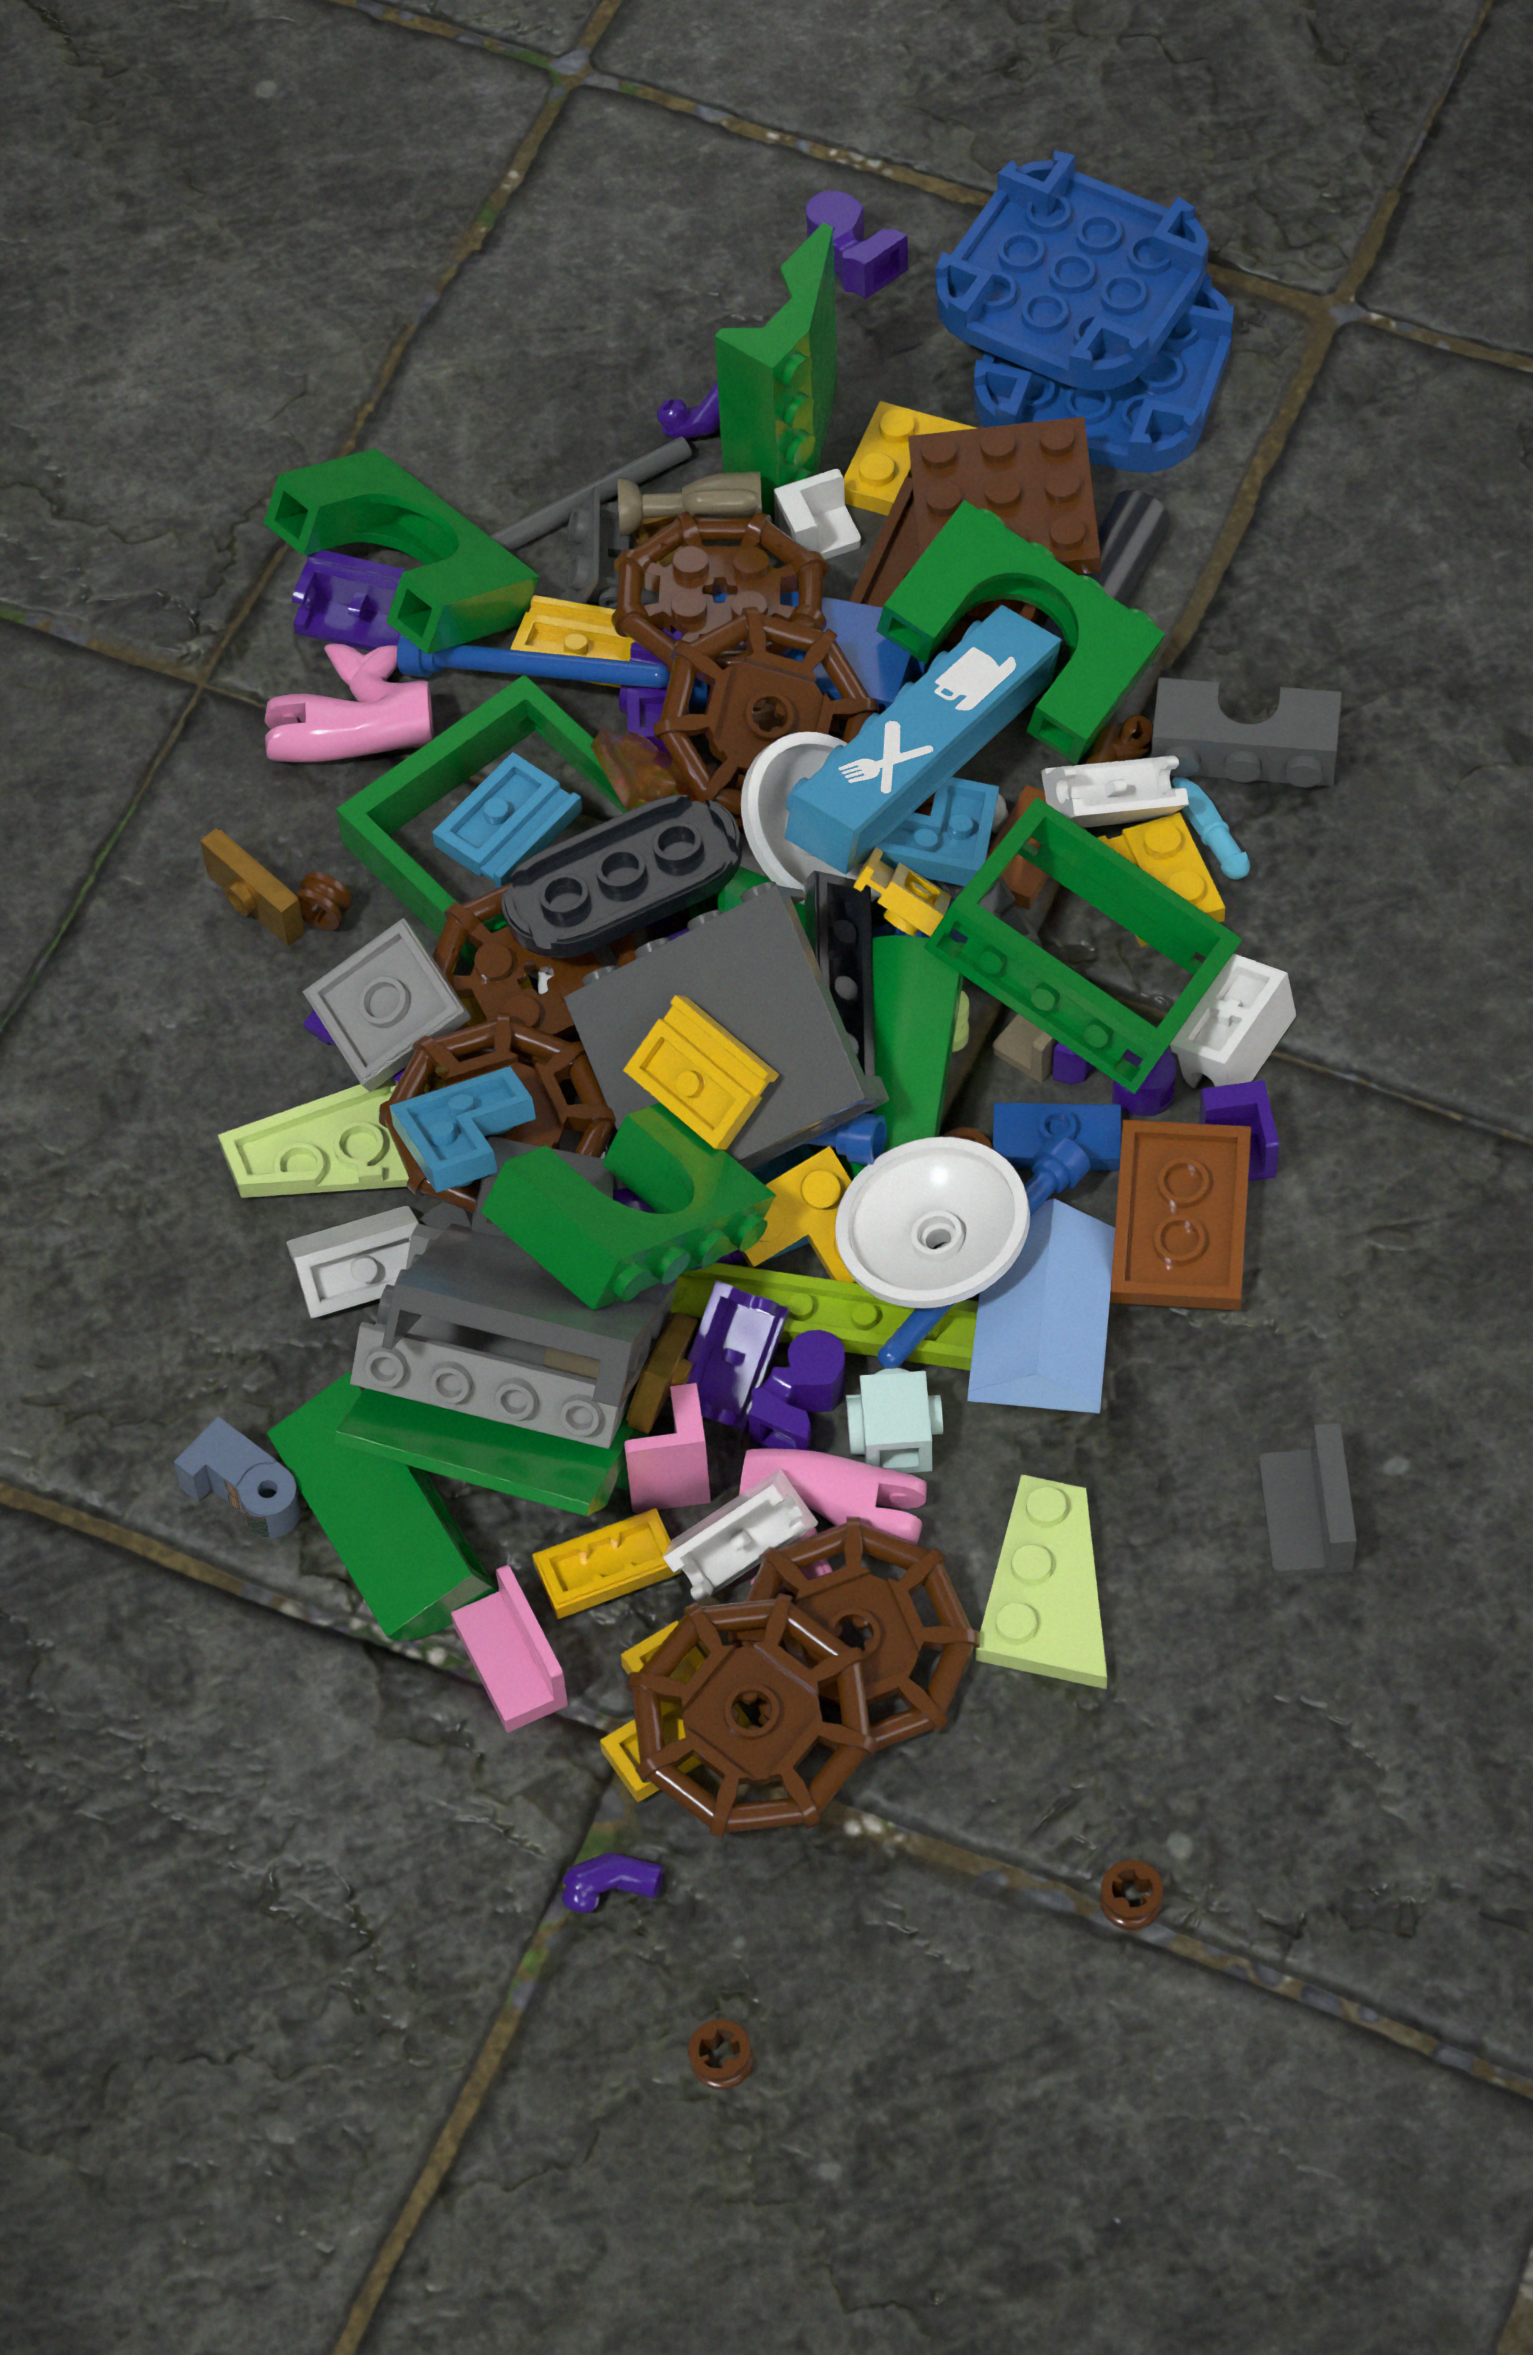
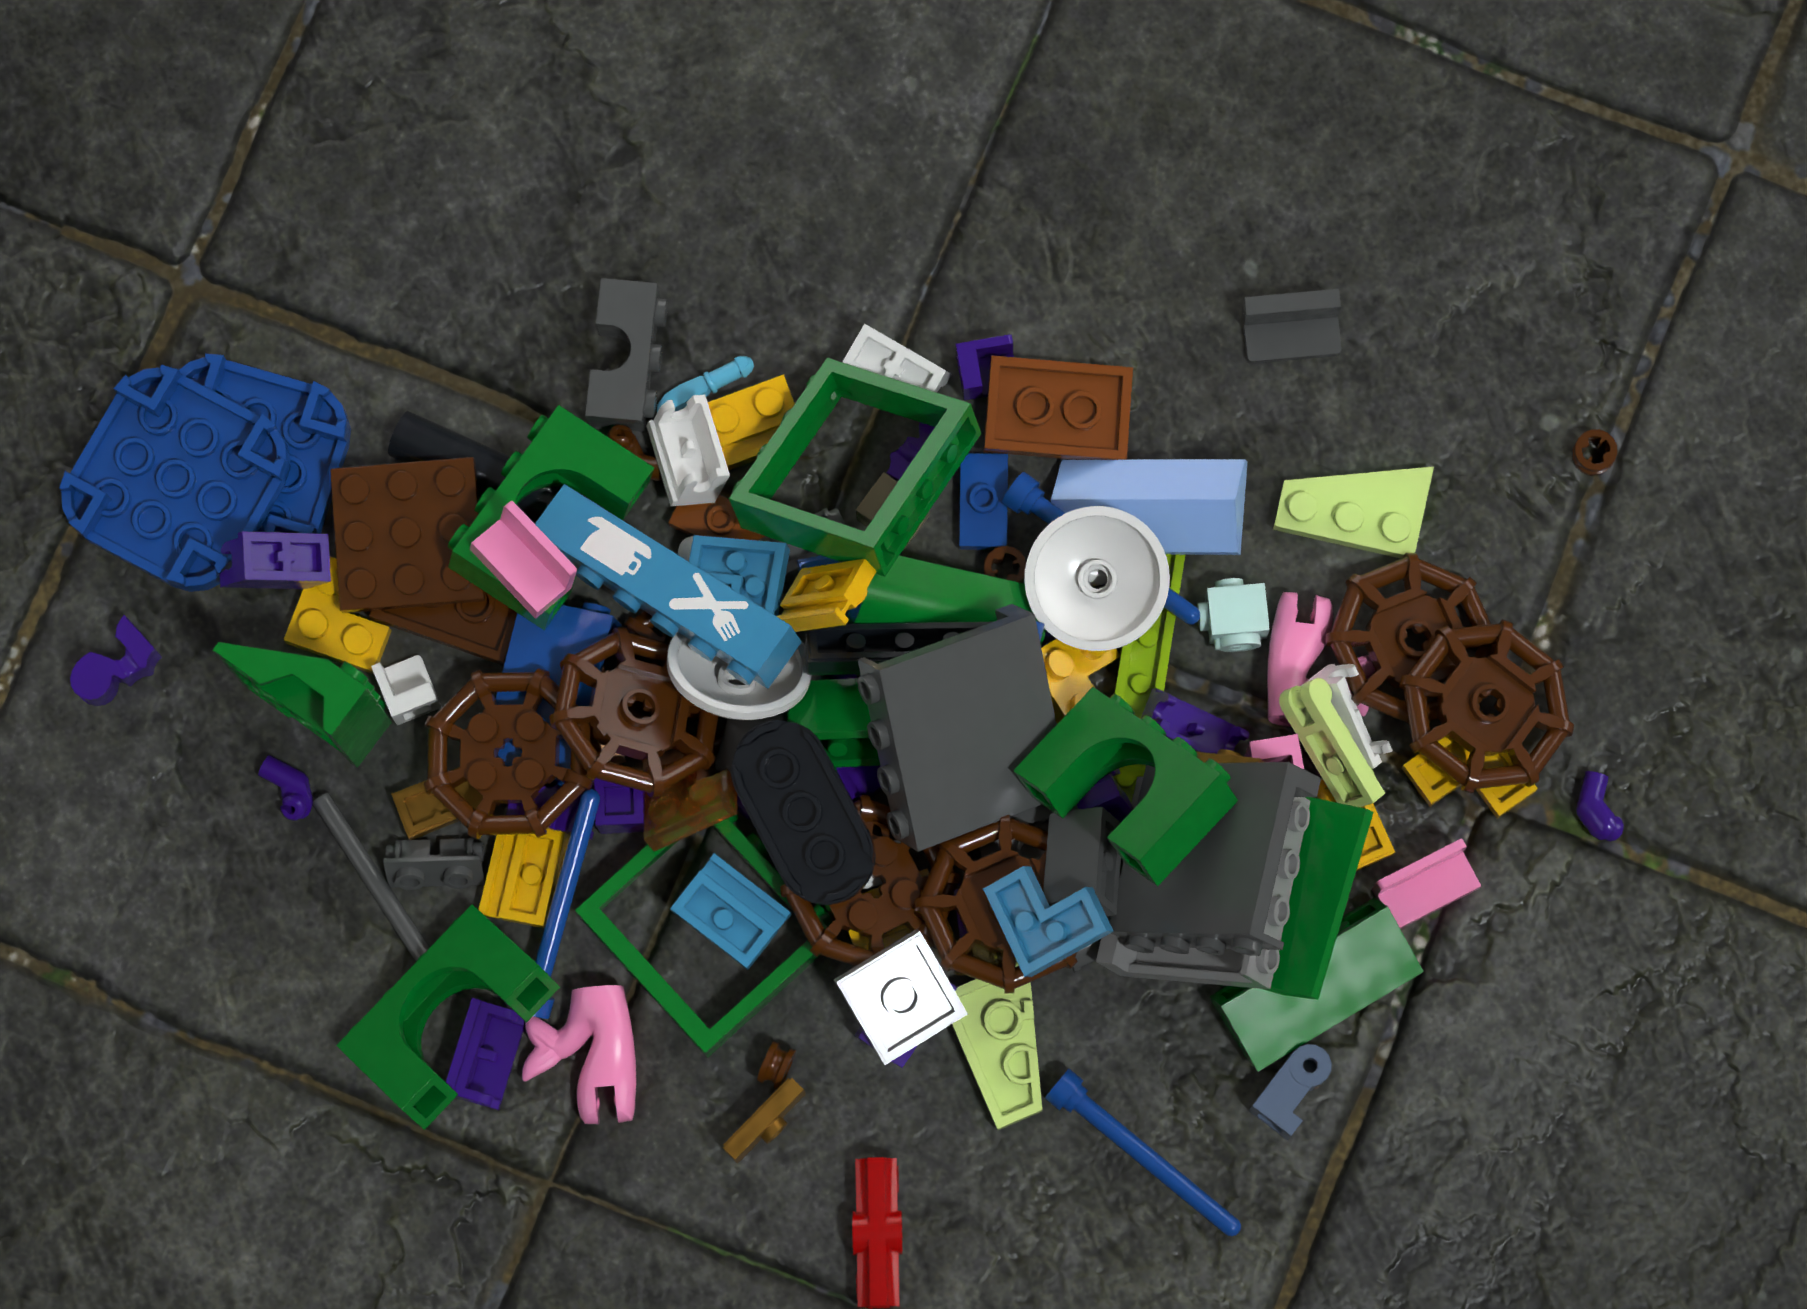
camera: 90 degrees left, 20 degrees up
(100, 1008) = (877, 1232): none -> red piece
(259, 1223) = (1072, 1096): none -> blue piece
(352, 1260) = (1096, 1017): white panel -> none
(698, 1500) = (1330, 743): none -> yellowish green plate
(700, 1072) = (1002, 739): yellow plate -> none
(708, 2038) = (1734, 719): reddish brown bush -> none
(709, 496) = (400, 763): dark tan piece -> none
(809, 1385) = (1195, 672): dark purple leg -> none
(947, 568) = (525, 560): none -> bright pink panel
(964, 355) = (277, 560): none -> dark purple hinge

